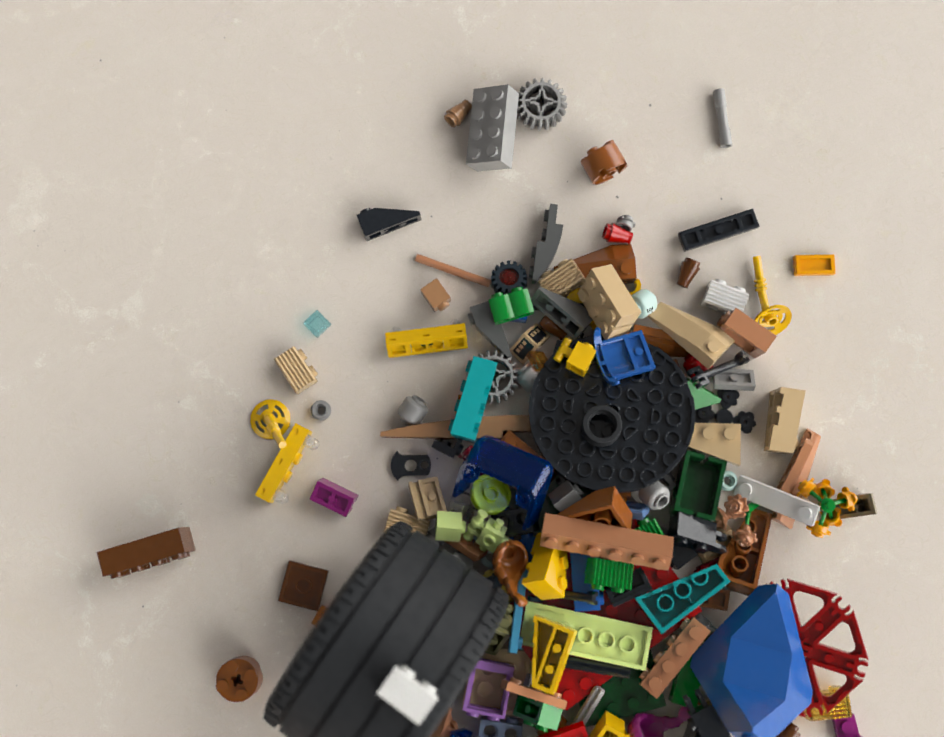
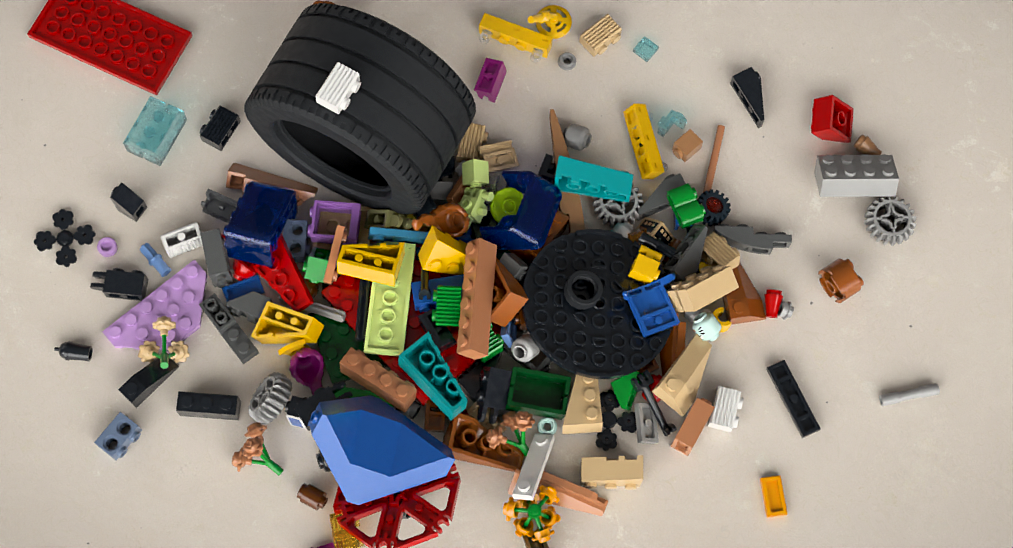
camera: 80 degrees right, 10 degrees down
(398, 465) = (522, 133): black piece -> none
(407, 313) = (667, 122): none -> clear light blue bracket
(423, 143) = (832, 119): none -> red slope
(552, 342) = (656, 245): none -> black axle
(688, 271) = (746, 372): reddish brown cone -> none
(767, 314) = (715, 451): yellow dish -> none

